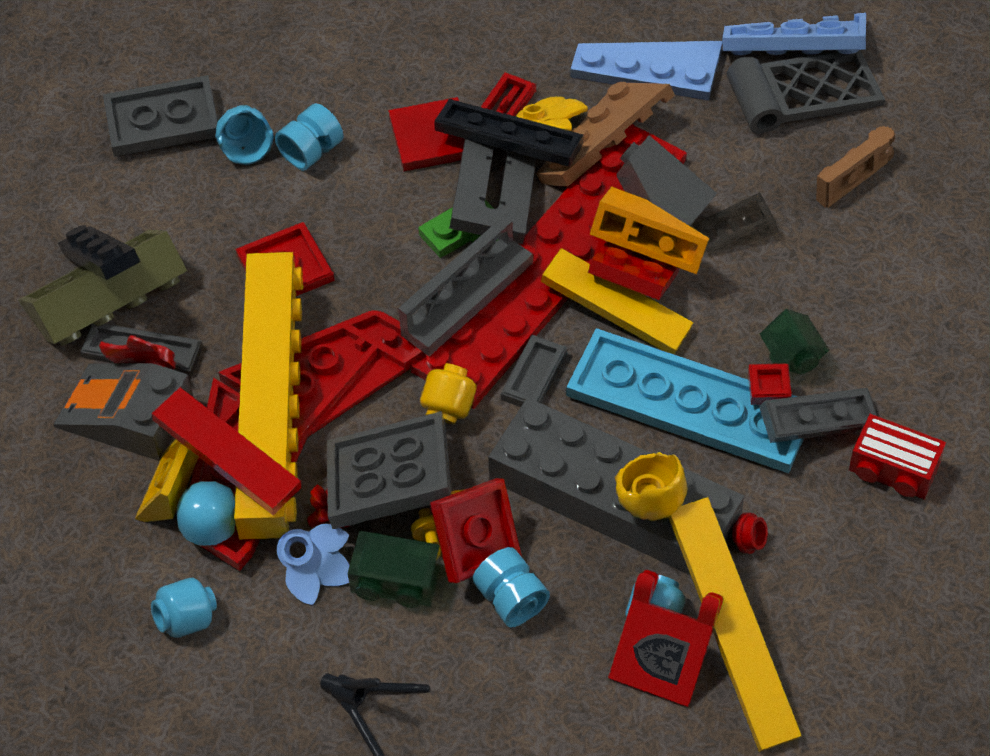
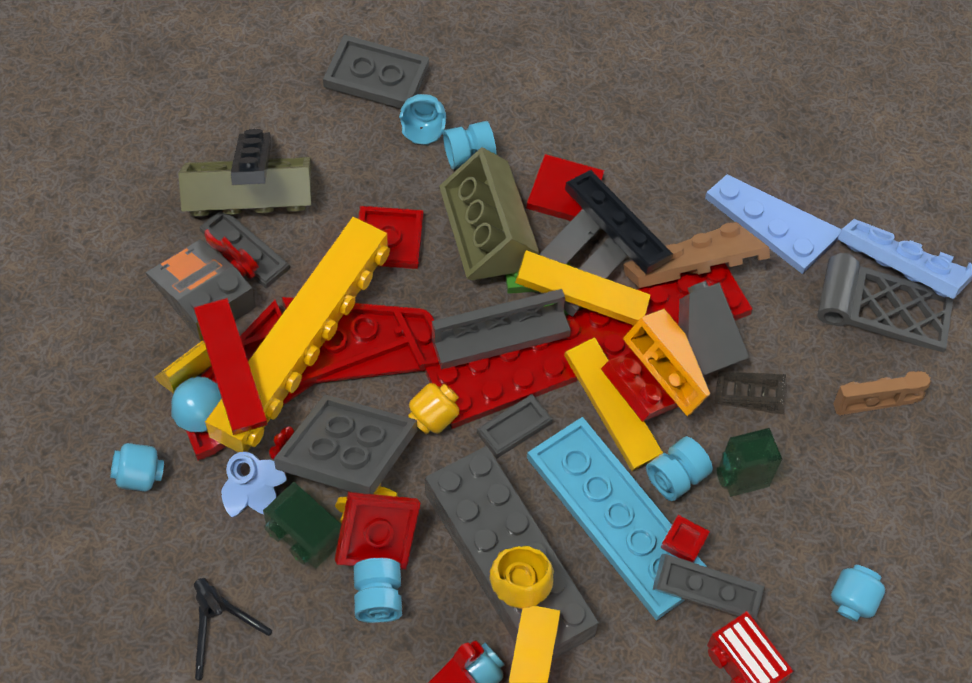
camera: 25 degrees right, 5 degrees up
(376, 193) = (487, 216): none -> olive slope
(500, 87) = (648, 201): red tile -> none
(522, 207) = (582, 288): none -> yellow tile
(553, 111) = (666, 221): yellow plate -> none
(719, 326) = (681, 466): none -> medium azure wheel
(750, 533) = (589, 653): red plate -> none
(782, 281) = (749, 462): none -> clear green brick
(794, 342) = (729, 515): clear green brick -> none
(953, 348) = (858, 592): none -> medium azure head

